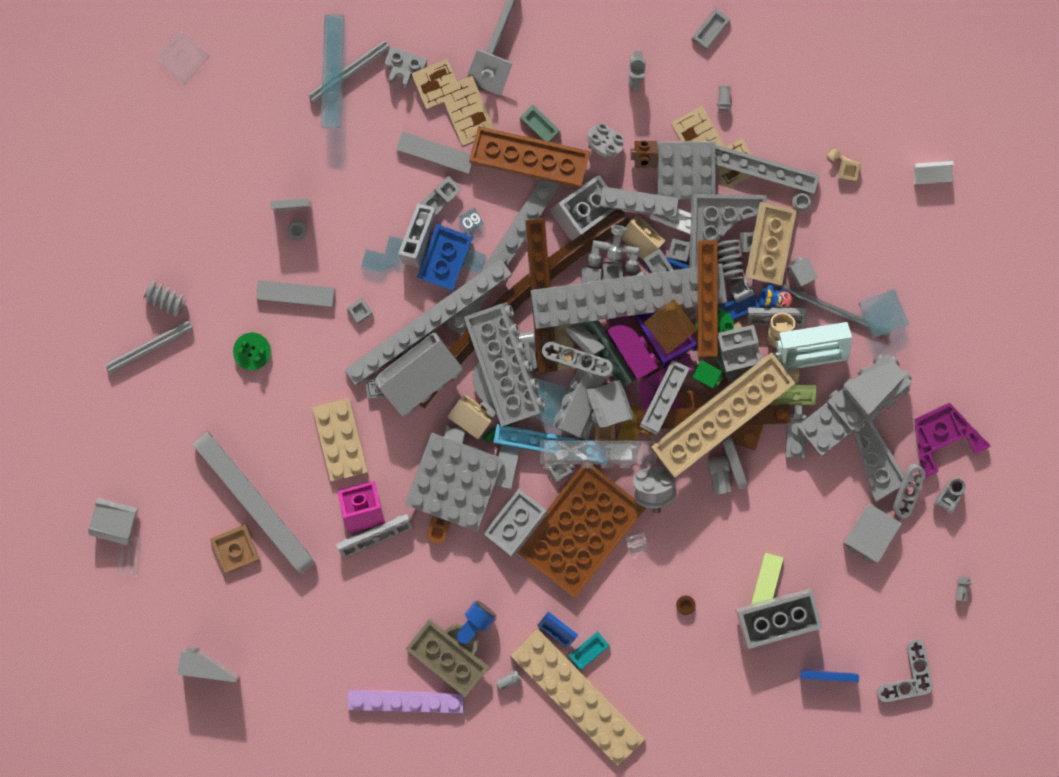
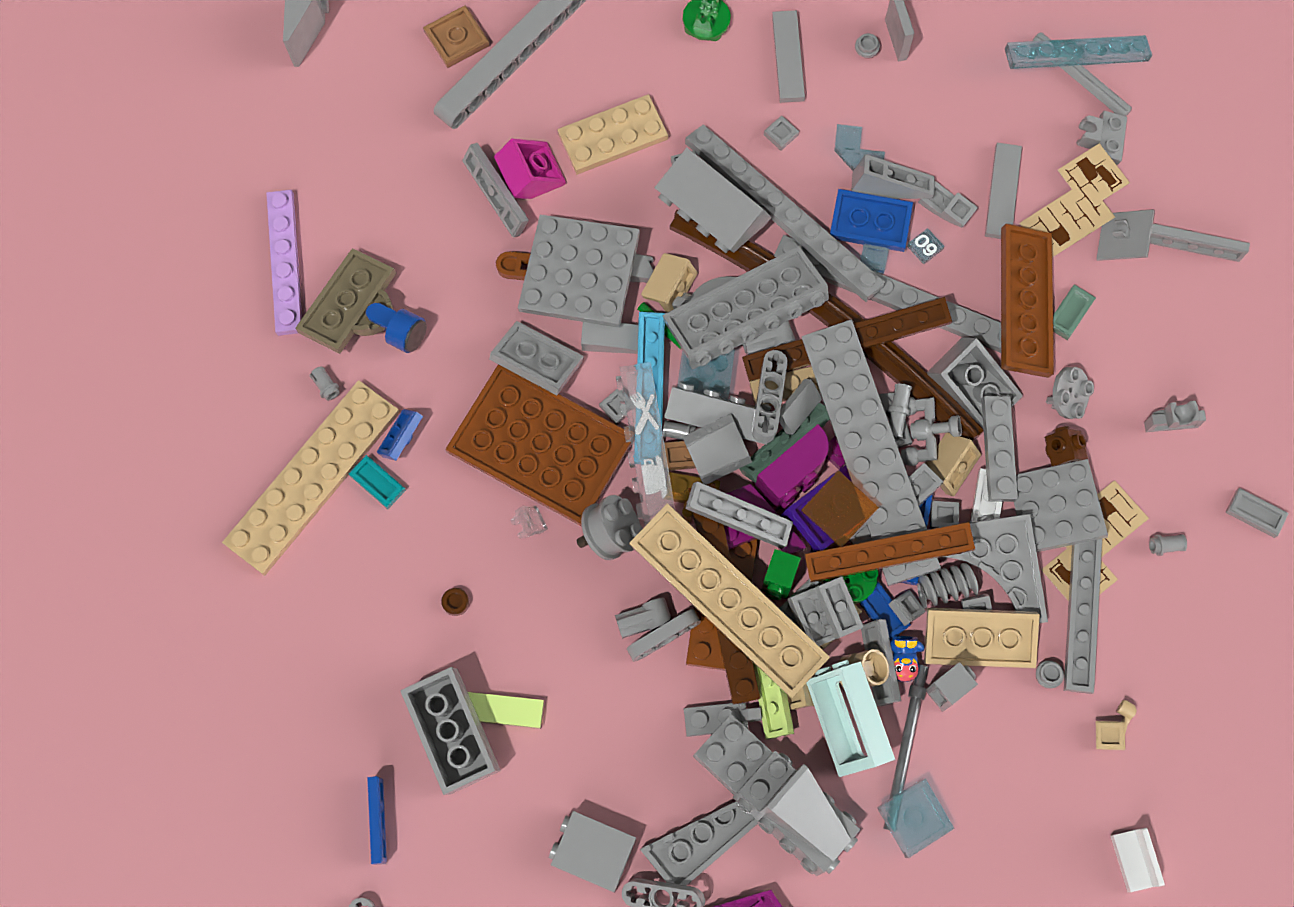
camera: 90 degrees right, 15 degrees down
(599, 268) = (899, 410): none -> light grey pin

